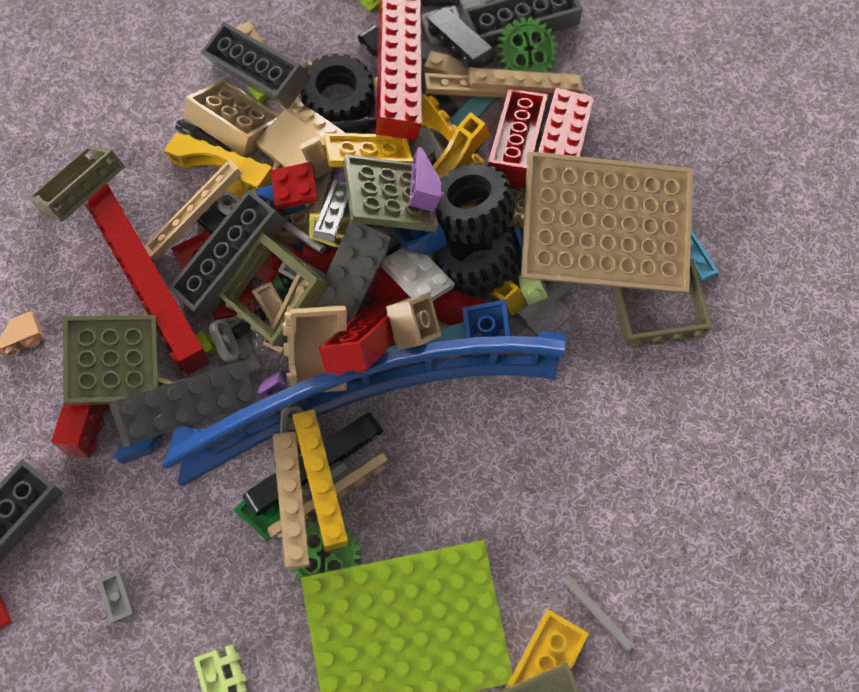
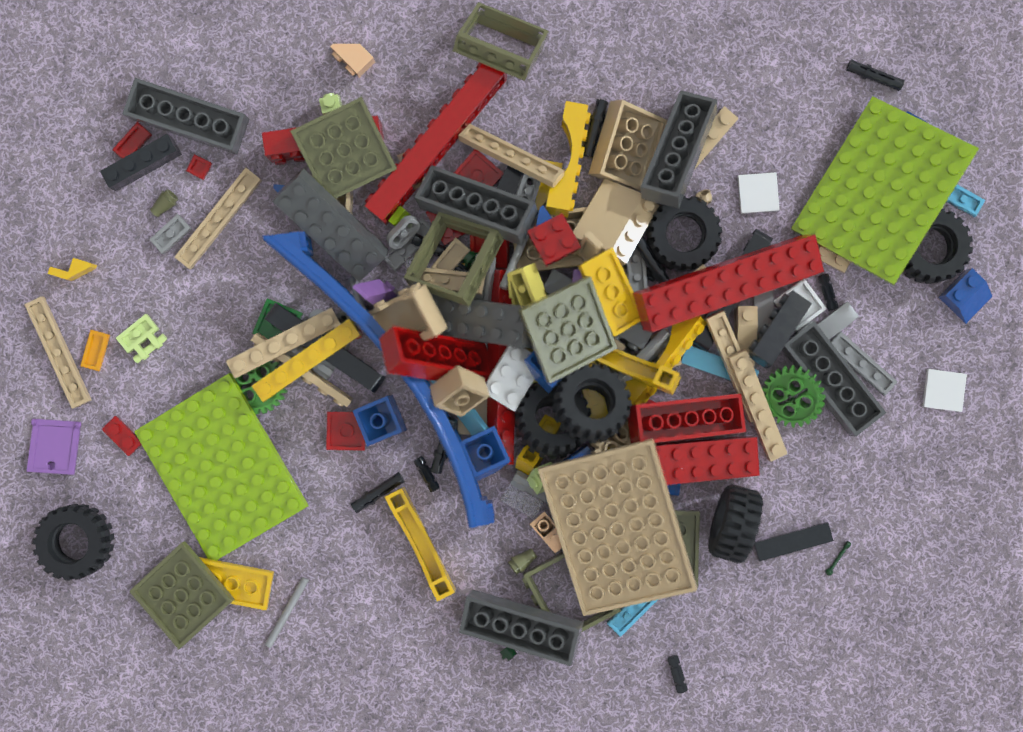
camera: 75 degrees right, 20 degrees up
(19, 602) = (140, 162): none -> black brick
(54, 371) = (329, 102): none -> yellowish green brick
(56, 539) = (198, 167): none -> red tile
(77, 592) = (164, 202): none -> olive cone
(123, 537) = (218, 218): none -> tan plate
(325, 27) = (758, 193): none -> white tile
(332, 212) = (533, 286): light grey tile -> none
(413, 474) = (343, 432): none -> red plate
(414, 430) = (380, 420): none -> blue slope
(425, 183) = (587, 357): medium lavender slope -> none
(469, 379) = (440, 454): none -> black pin
(489, 407) = (426, 474): none -> black axle
(495, 472) = (373, 495): none -> black pin
(592, 300) = (547, 531): none -> light nougat slope
(598, 429) = (421, 543): none -> yellow arch
(613, 341) = (521, 561): none -> olive cone
(635, 123) = (735, 523): none -> black tyre
(665, 96) = (793, 541): none -> black tile
(685, 354) = (521, 627): none -> dark grey brick
(703, 77) = (829, 571): none -> dark green hinge
(707, 383) = (508, 653): none -> dark green plate
(771, 233) = (677, 674): none -> black axle

